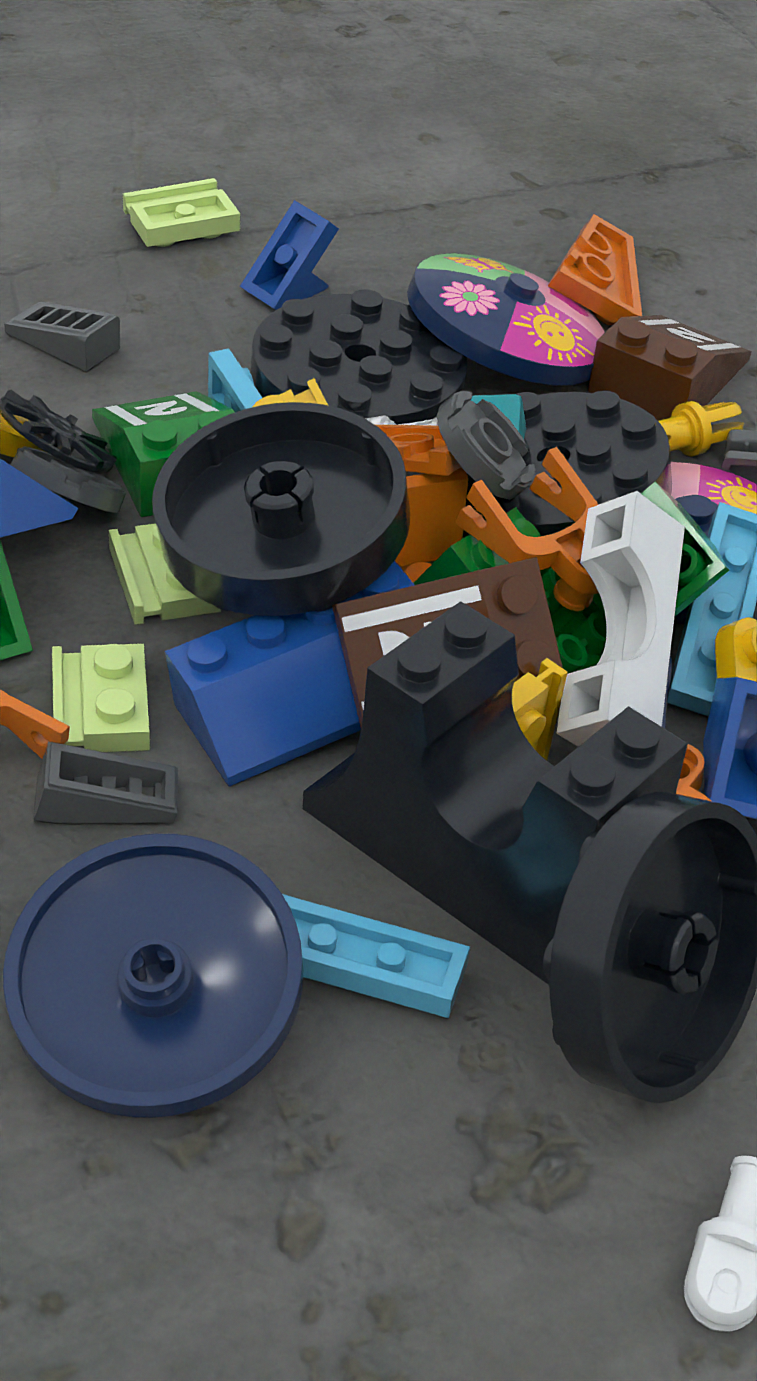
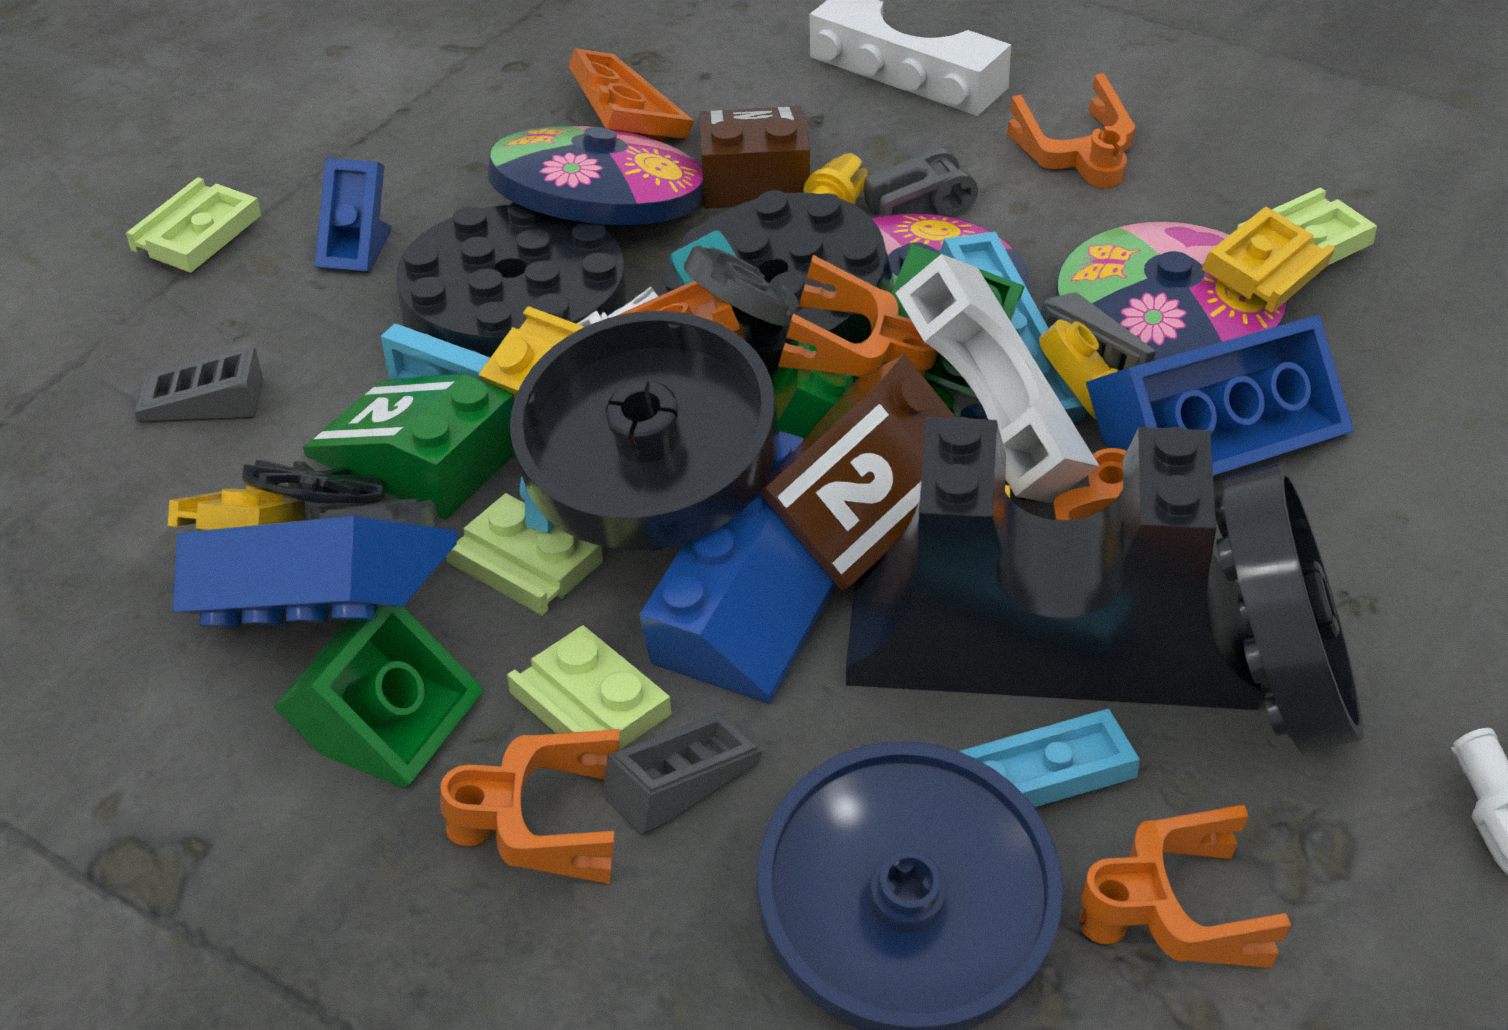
camera: 30 degrees left, 0 degrees up
(327, 1093) = (1139, 893): none -> orange piece

